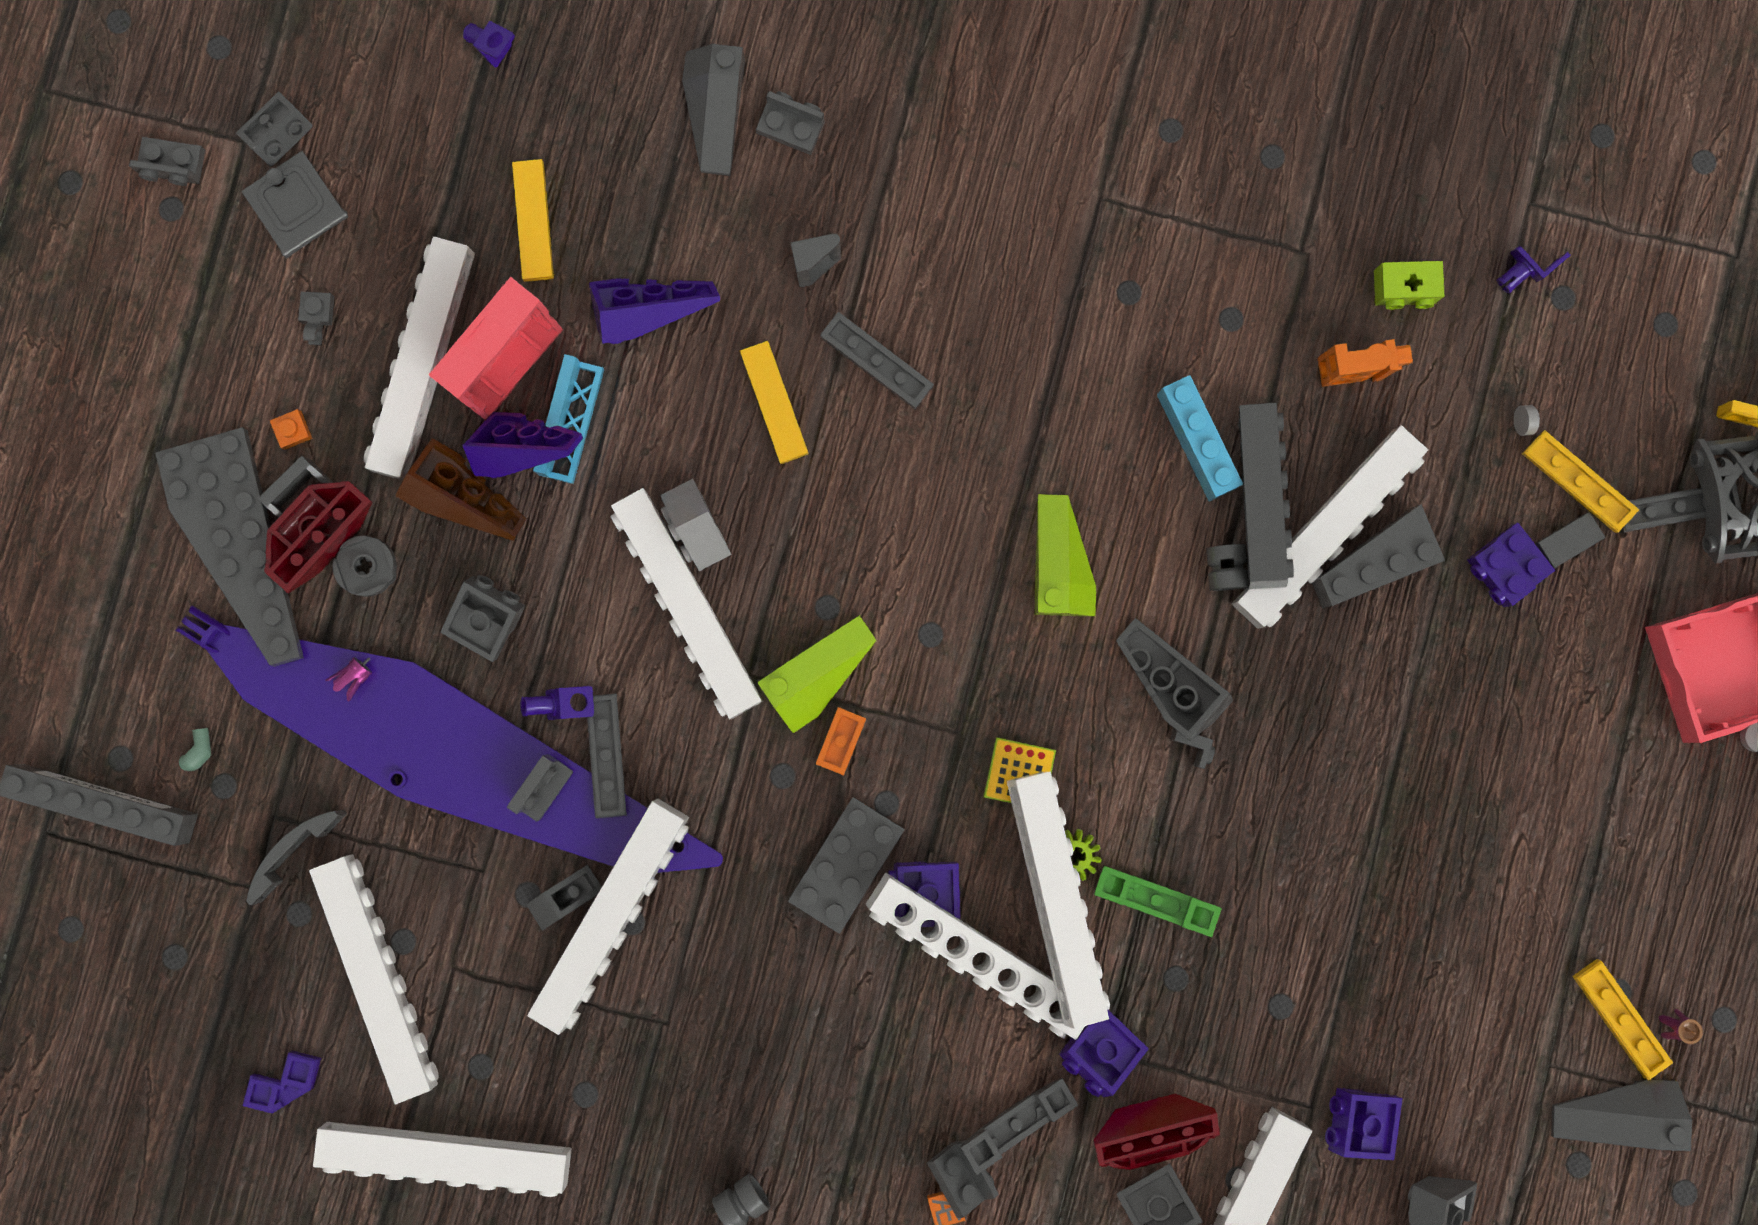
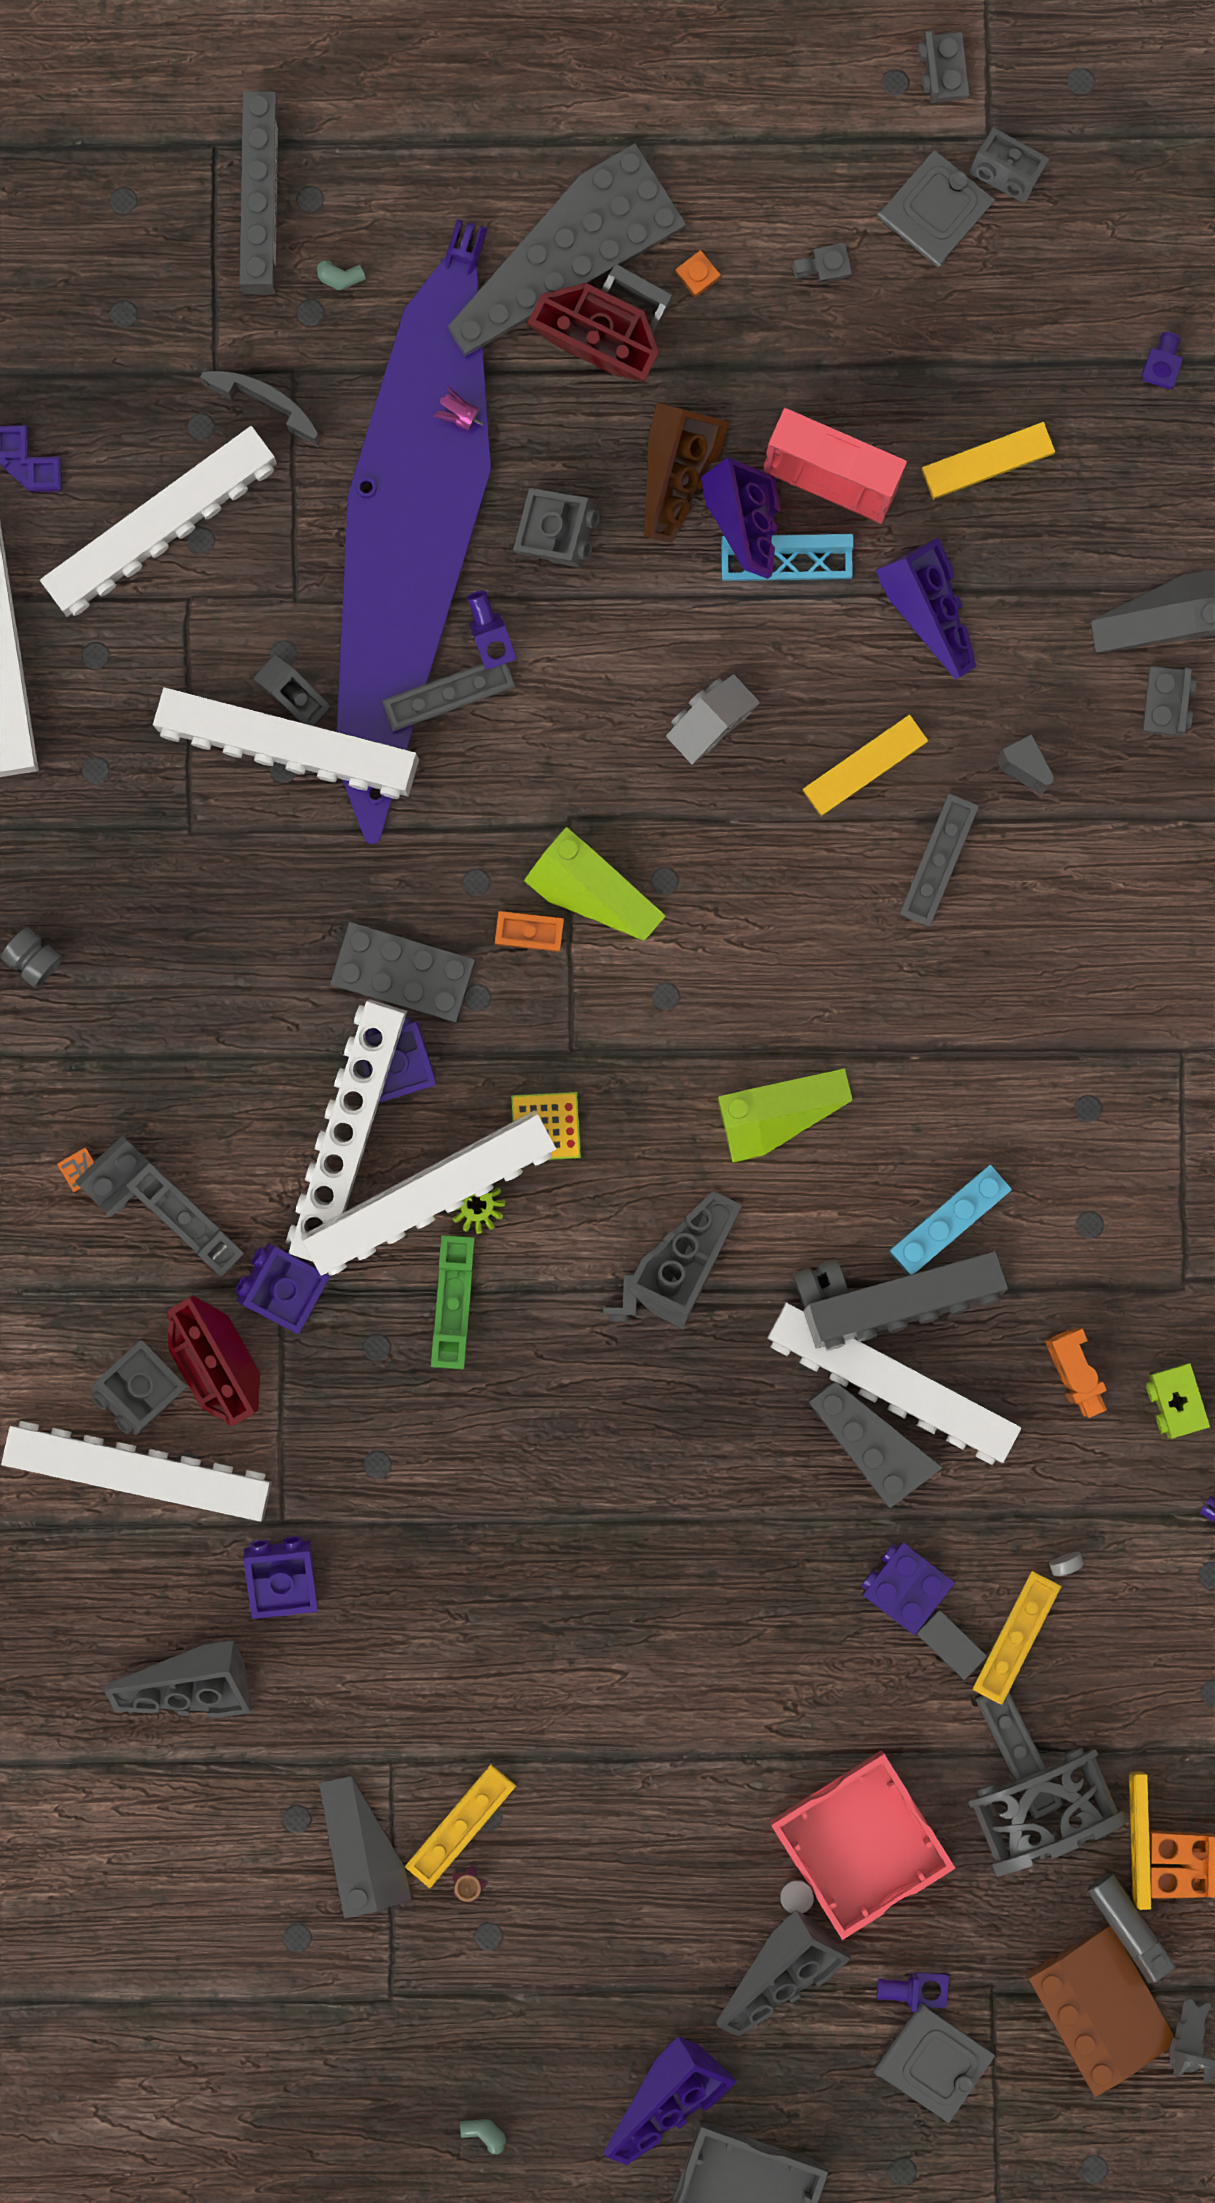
camera: 75 degrees right, 0 degrees up
(349, 559) = (575, 410): dark grey plate -> none
(421, 348) = (807, 385): white brick -> none
(540, 787) = (397, 636): dark grey bracket -> none
(686, 603) = (627, 733): white brick -> none

